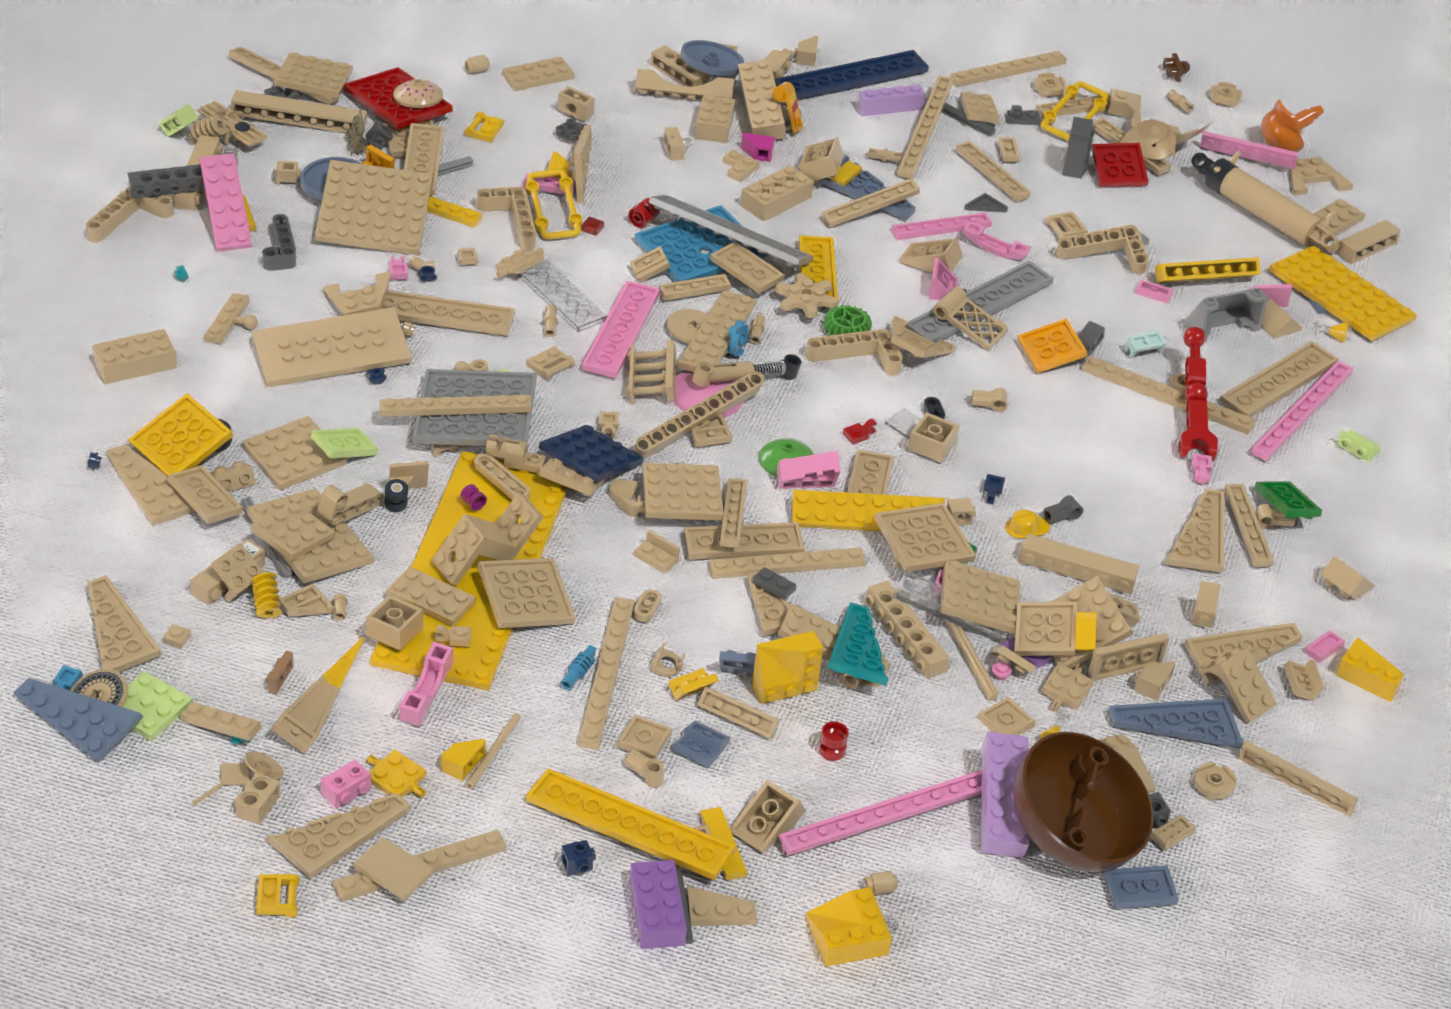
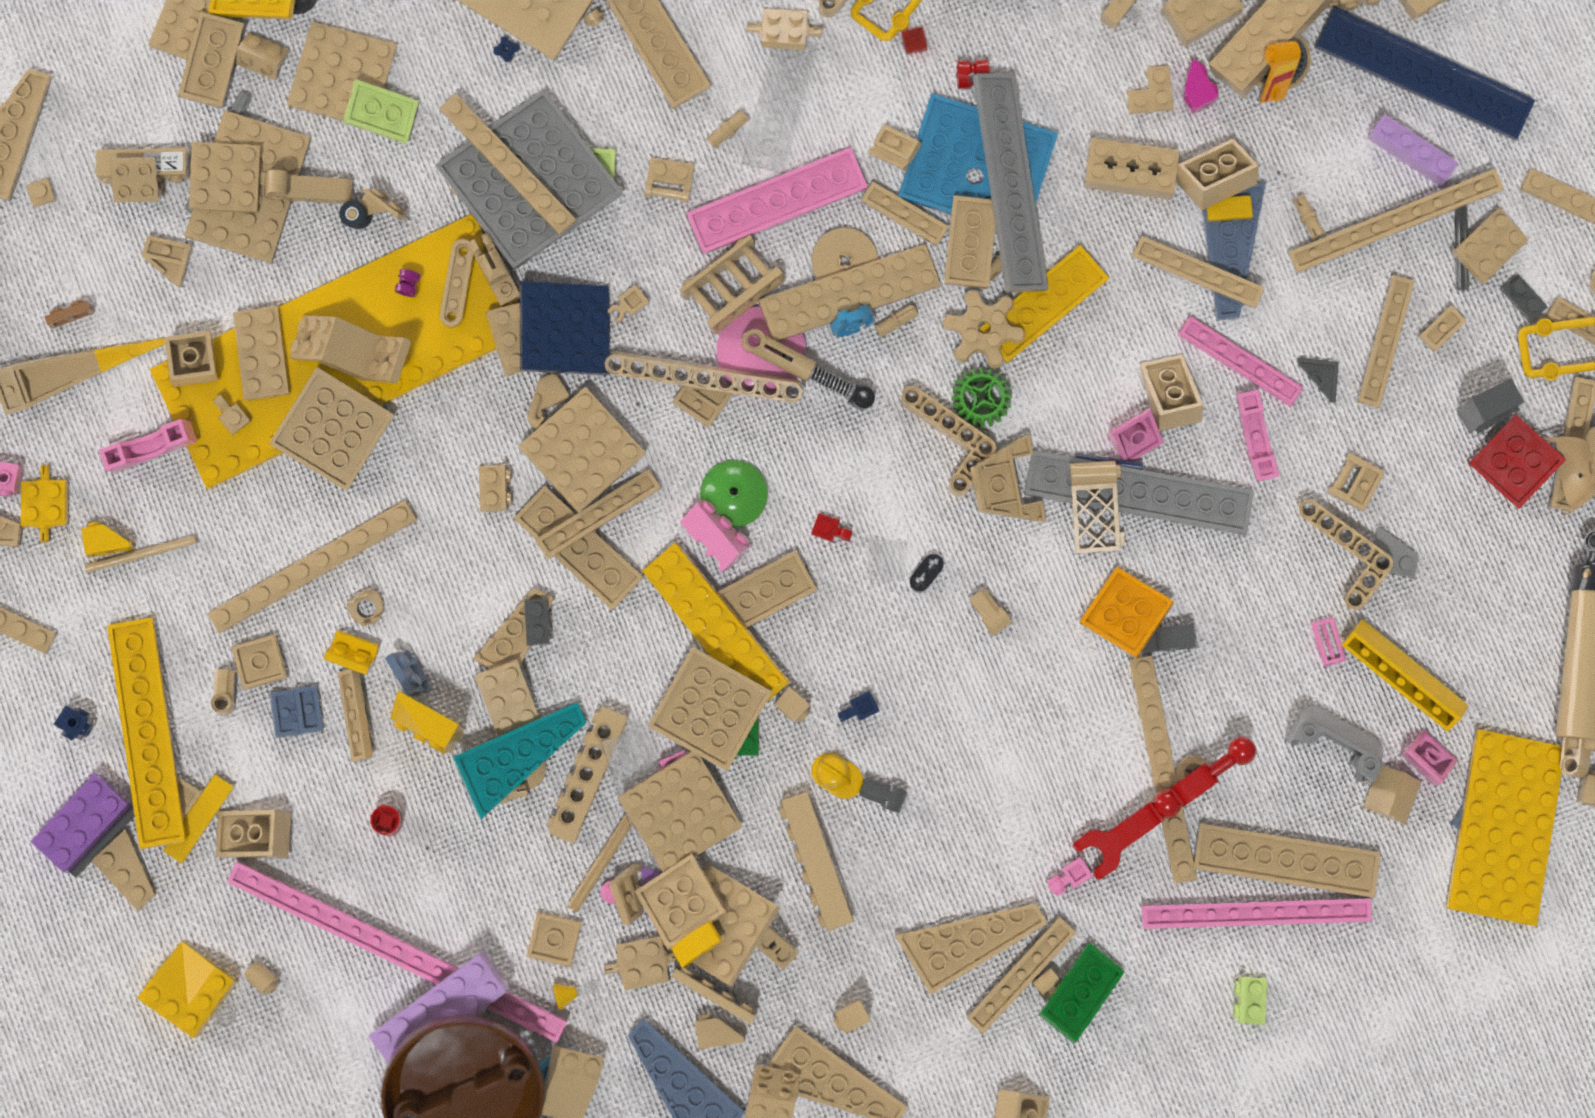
camera: 50 degrees right, 40 degrees up
(266, 595) = (137, 225): yellow piece -> none
(339, 603) = (187, 289): tan pin -> none
(476, 365) = (586, 113): tan plate -> none
(579, 667) = (293, 542): dark azure hinge -> none
(647, 605) = (419, 534): tan plate -> none
(788, 562) = (588, 606): tan plate -> none
(933, 437) = (874, 606): tan brick -> none
(1145, 342) = (1217, 697): light aqua hinge -> none
(1341, 331) = (1429, 868): piece -> none

